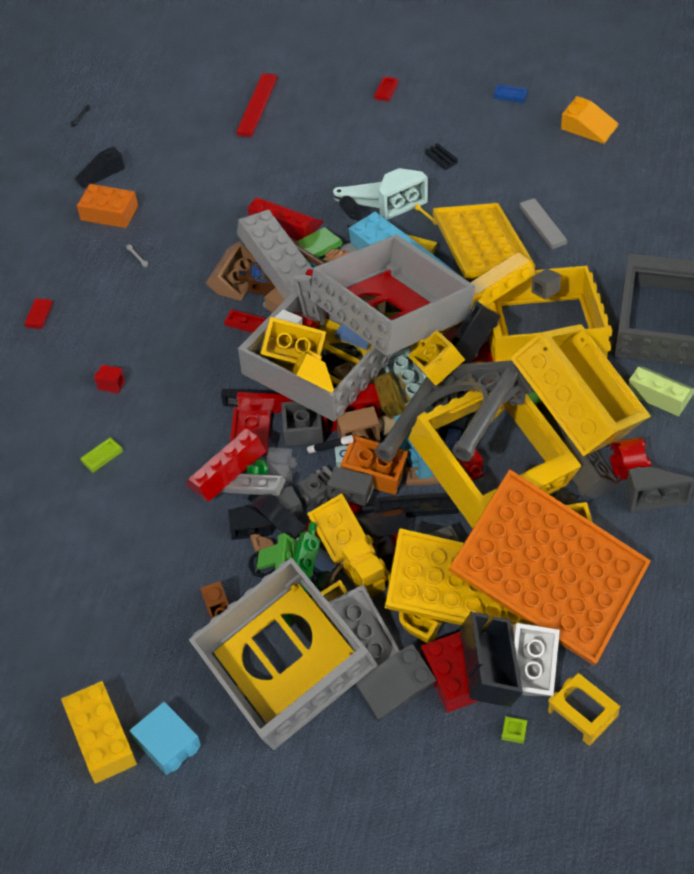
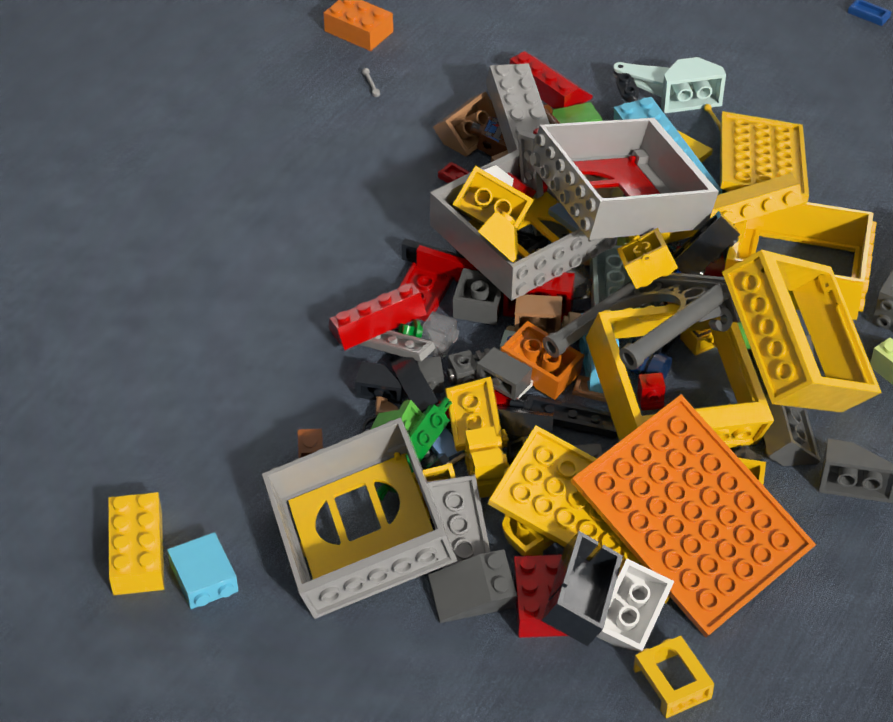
camera: 15 degrees right, 5 degrees down
(38, 313) = (241, 114): red tile -> none
(101, 454) = (250, 273): lime tile -> none
(109, 379) = (289, 198): red brick -> none
(330, 444) = (501, 325): bar -> none
(389, 395) = (584, 288): clear yellow brick -> none
(443, 155) = (761, 60): black tile -> none
(514, 730) = (586, 676): lime tile -> none
(543, 223) = (847, 160): light grey tile -> none
(546, 283) = (813, 217): dark grey brick -> none
(628, 455) = (837, 425): red brick -> none

